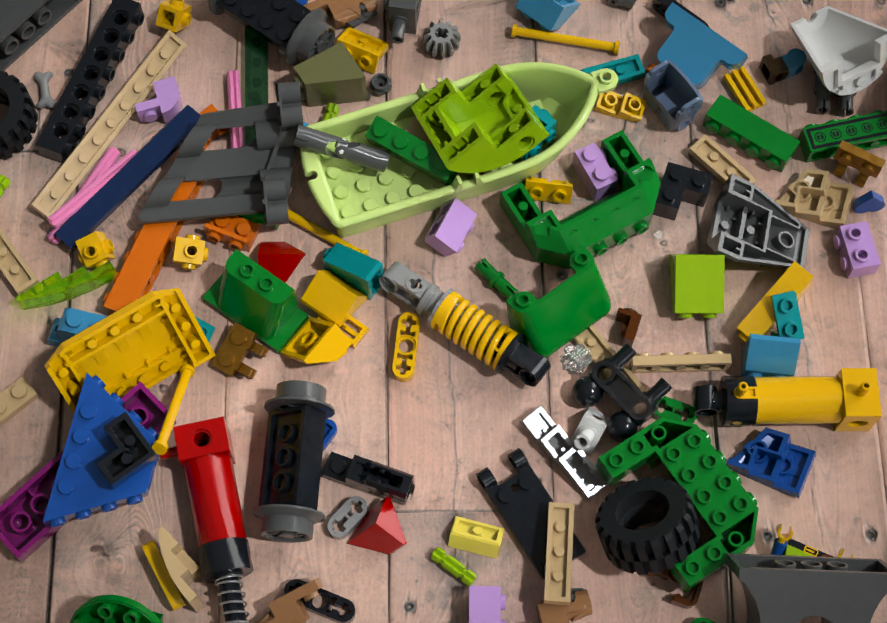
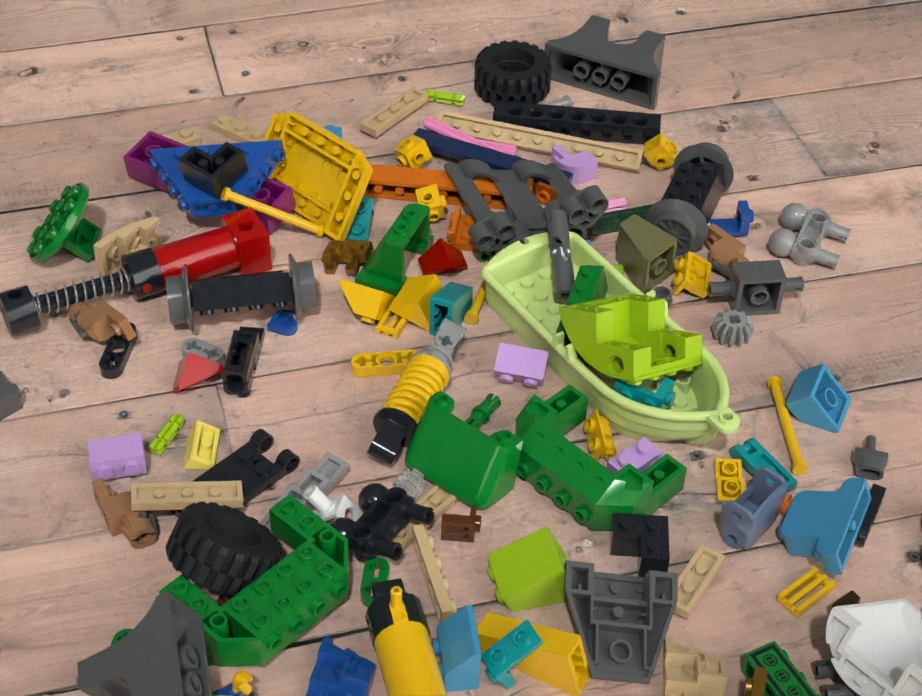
camera: 75 degrees right, 25 degrees down
(57, 290) = (373, 144): clear neon green slope -> none
(750, 133) = (747, 602): green brick -> none

